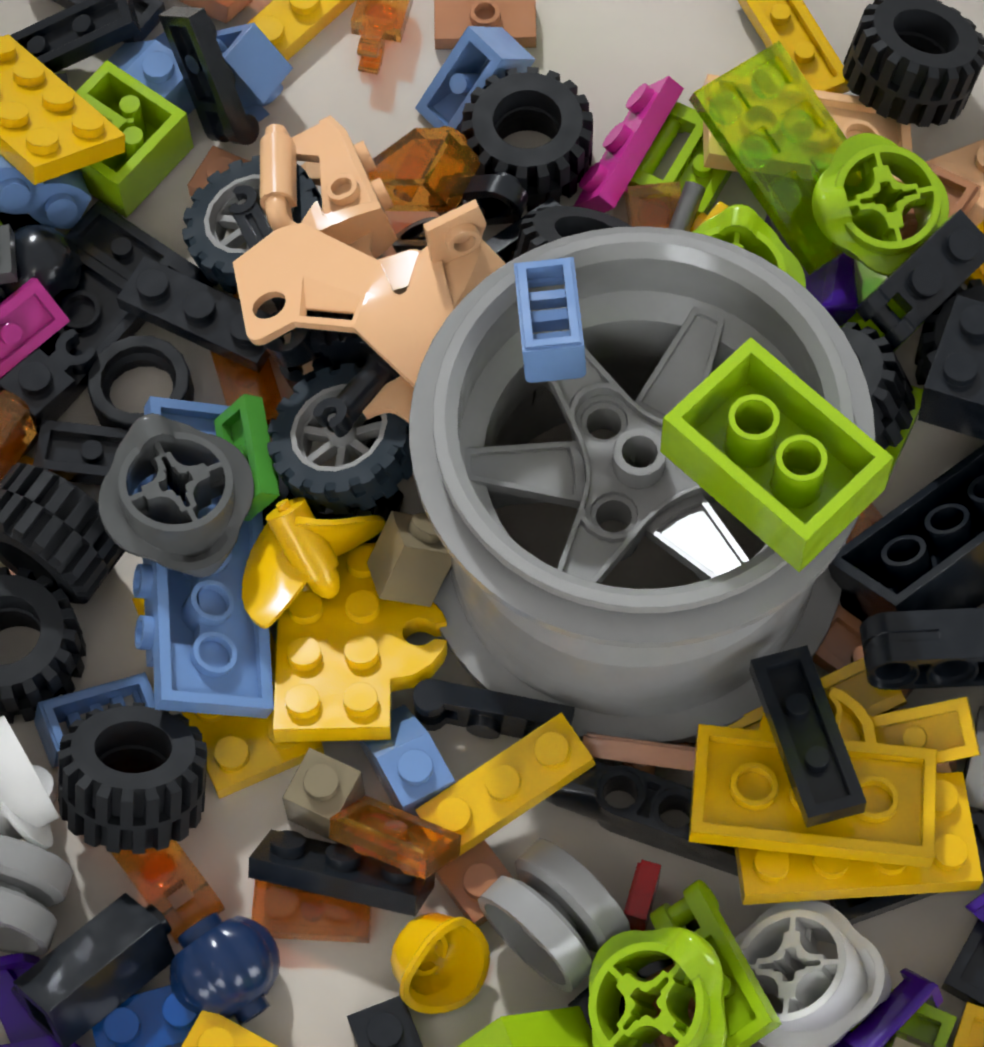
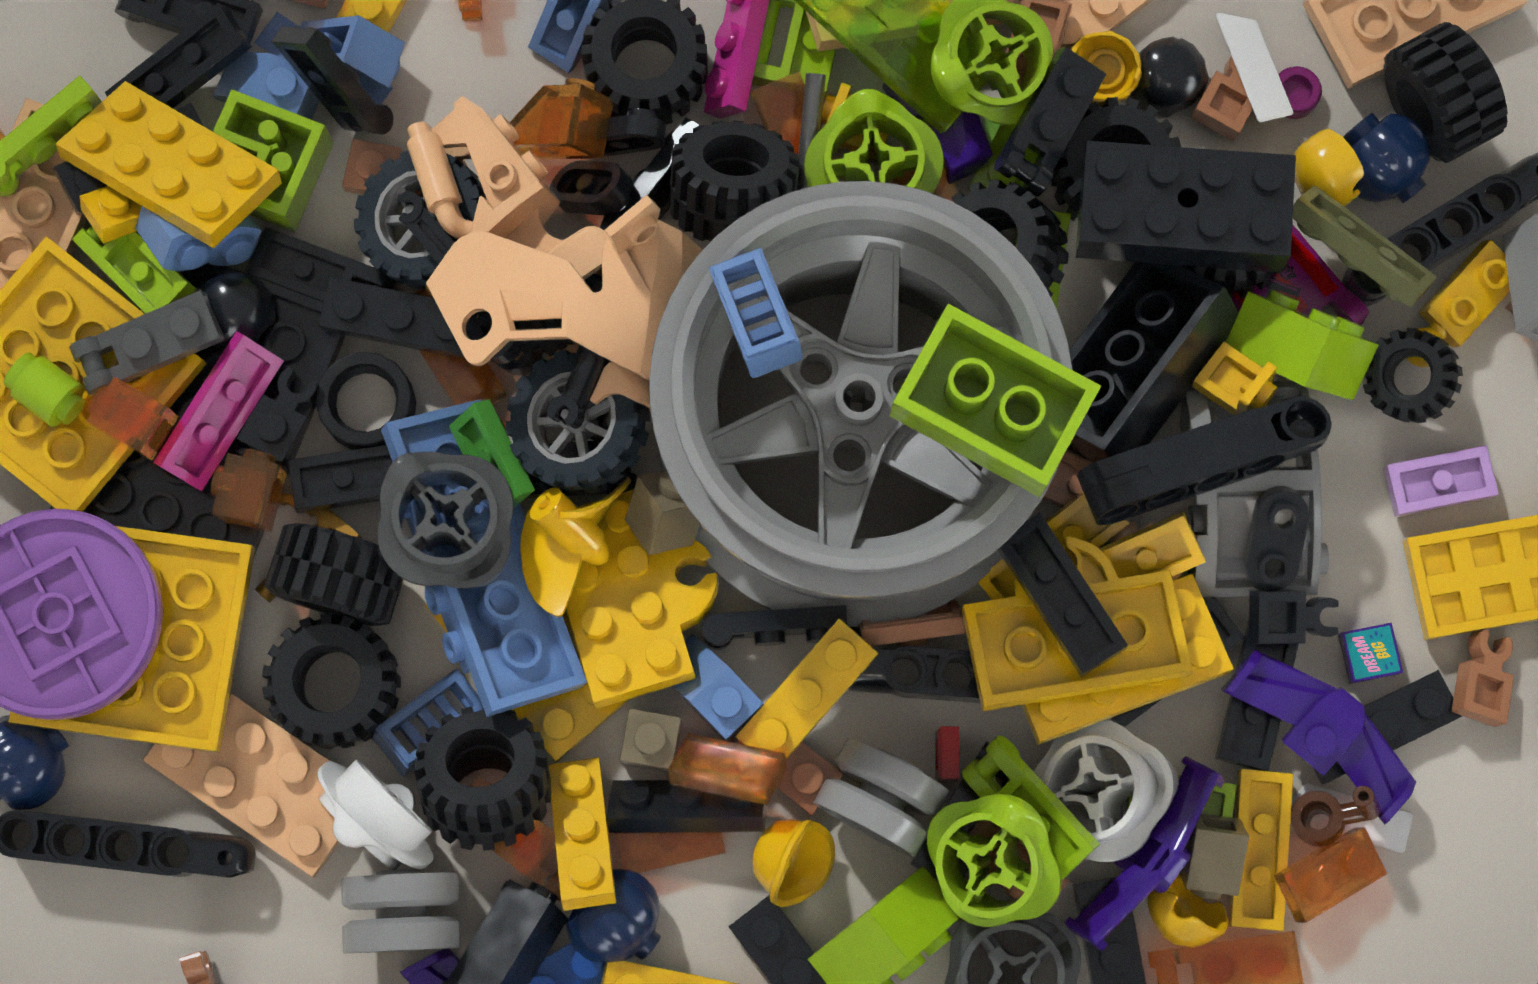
camera: 20 degrees left, 15 degrees up
(217, 868) = (581, 834): none -> yellow plate

